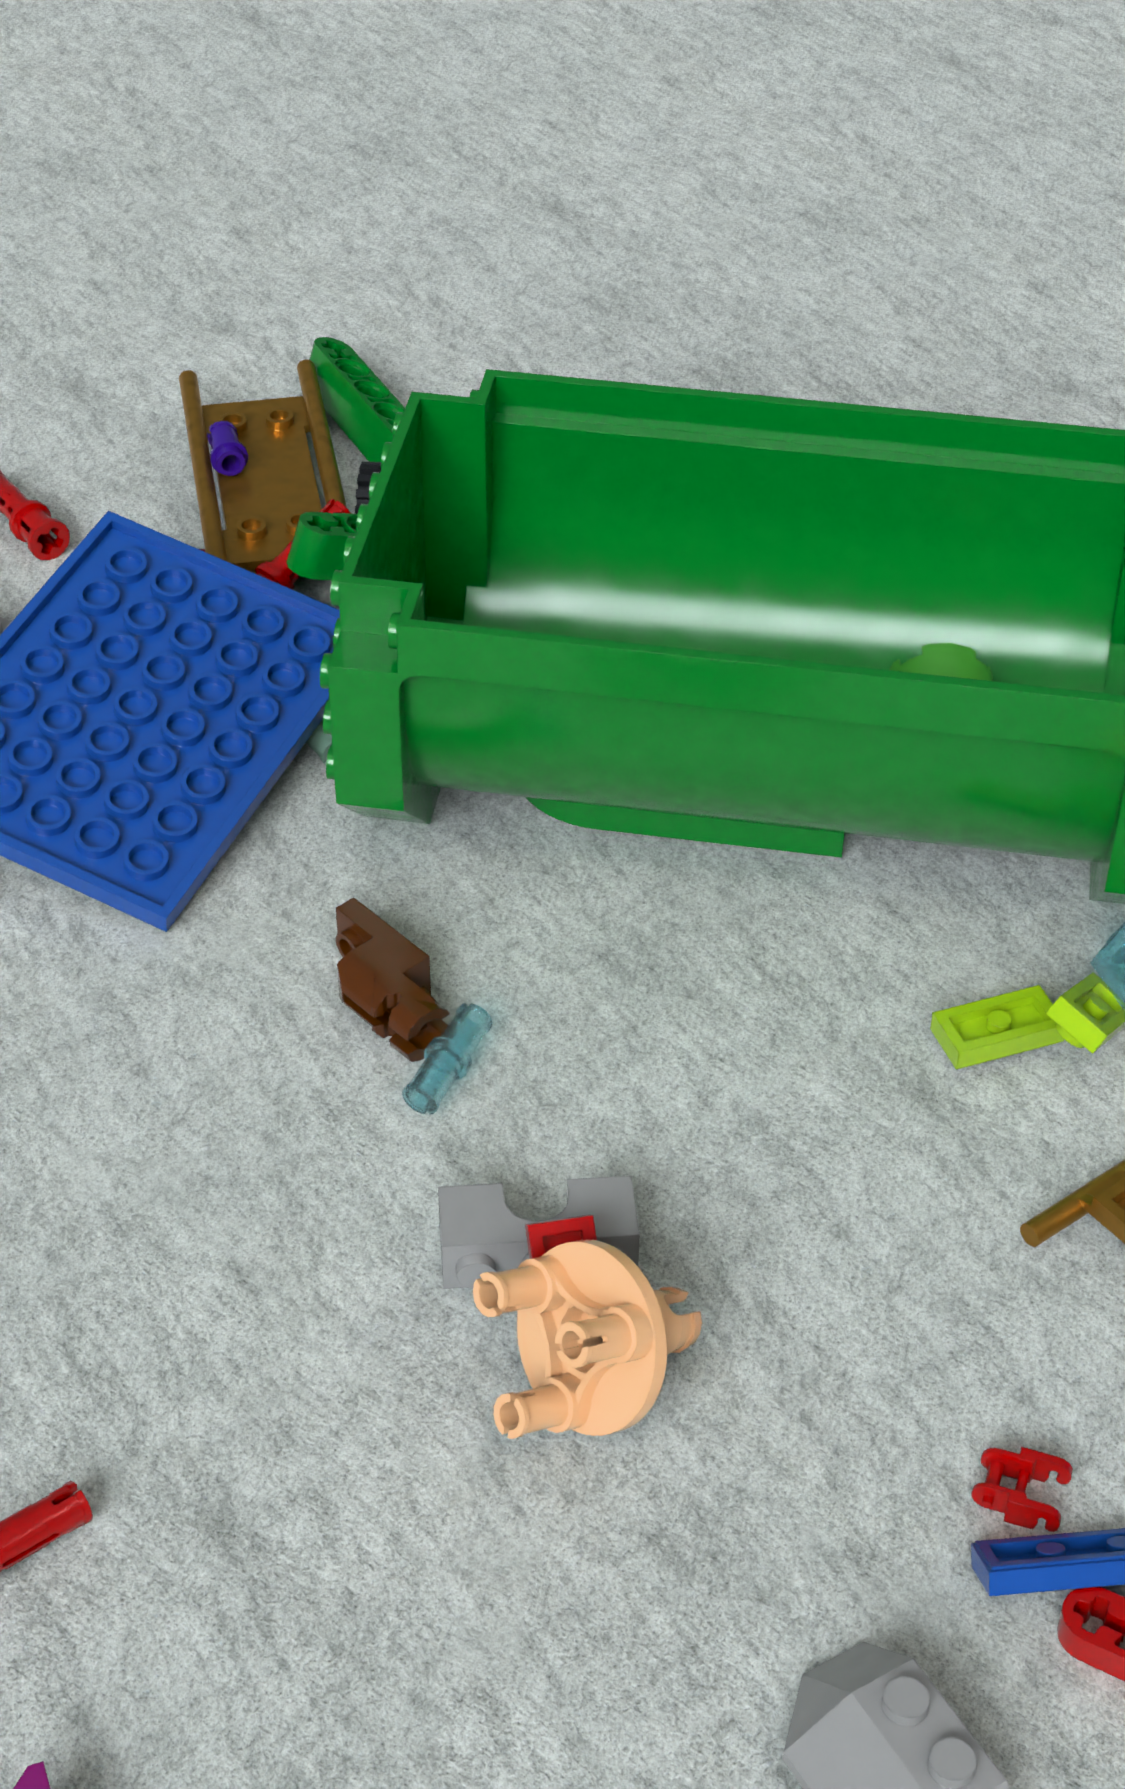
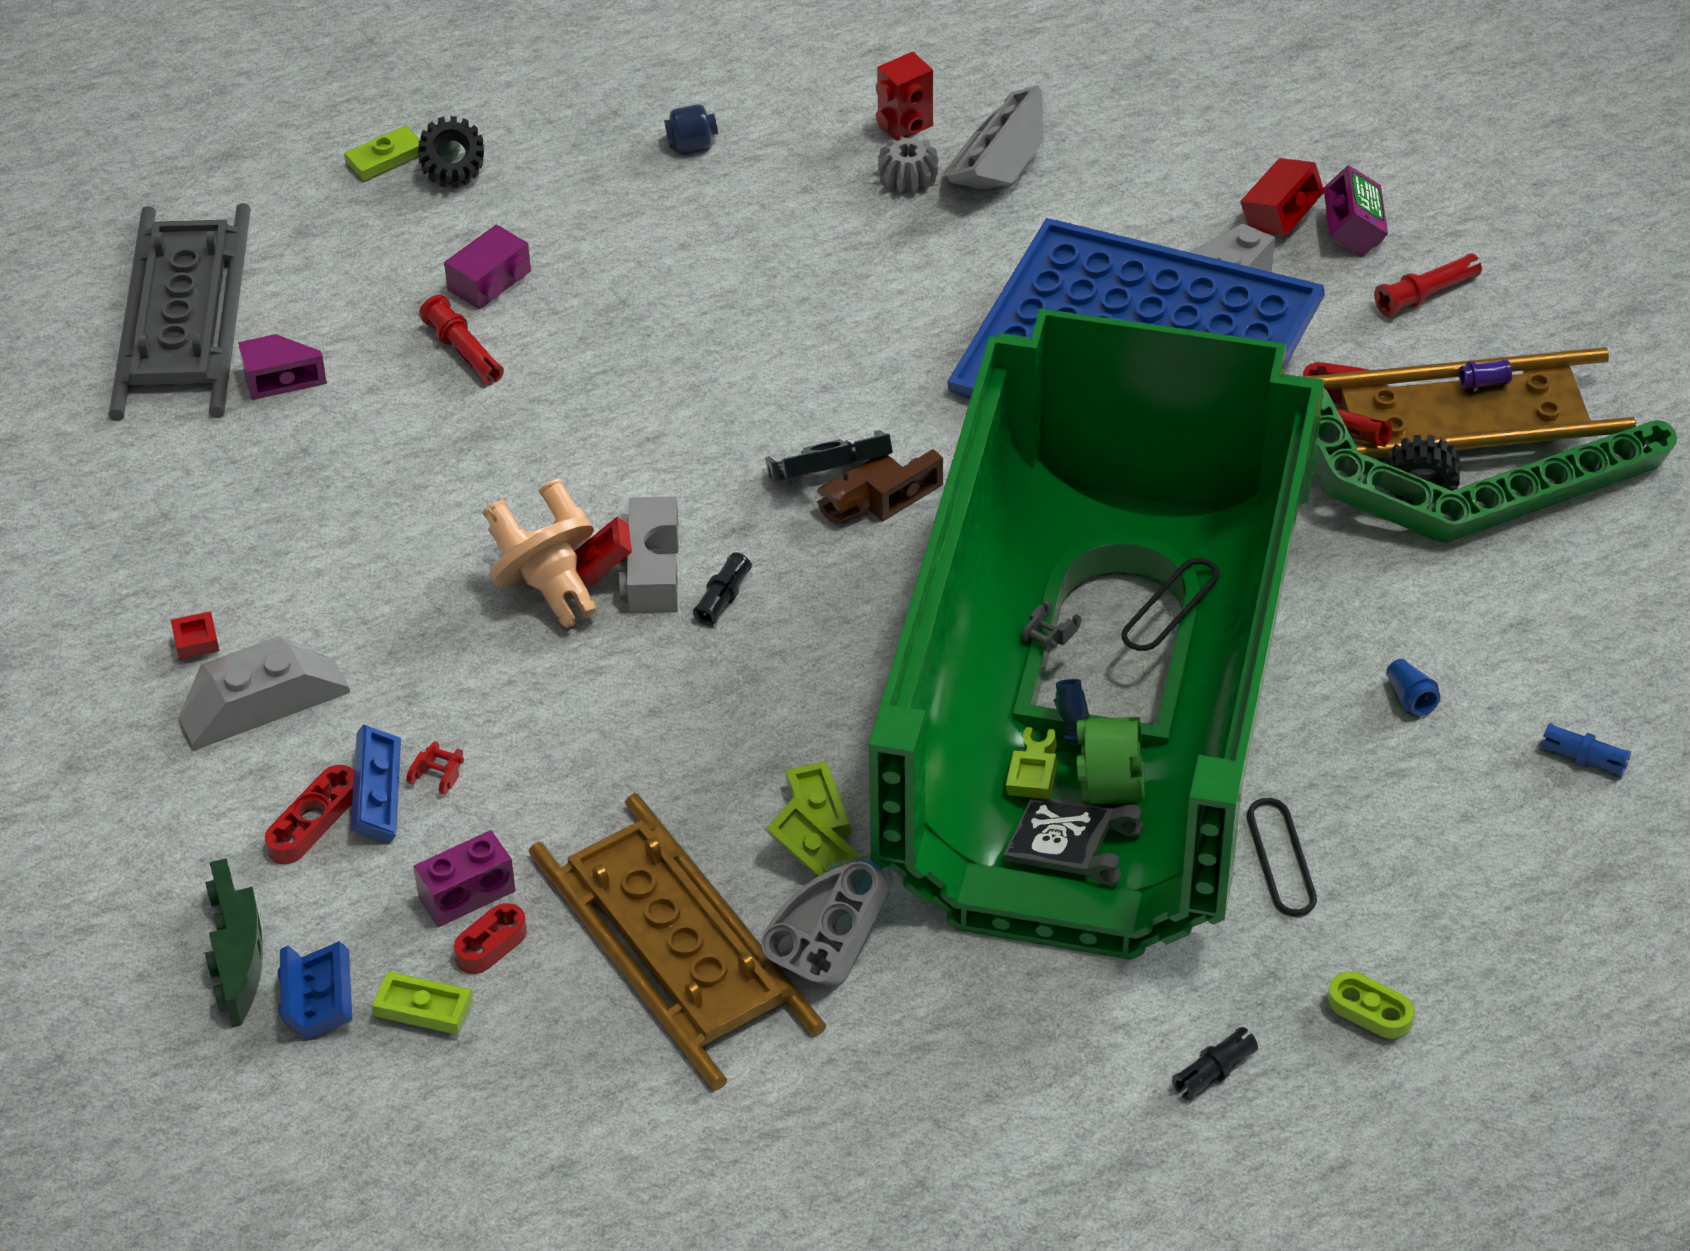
camera: 95 degrees right, 5 degrees up
(339, 1060) = (829, 456): none -> black piece
(447, 1058) = (810, 518): clear light blue pin -> none
(596, 1152) = (714, 599): none -> black pin

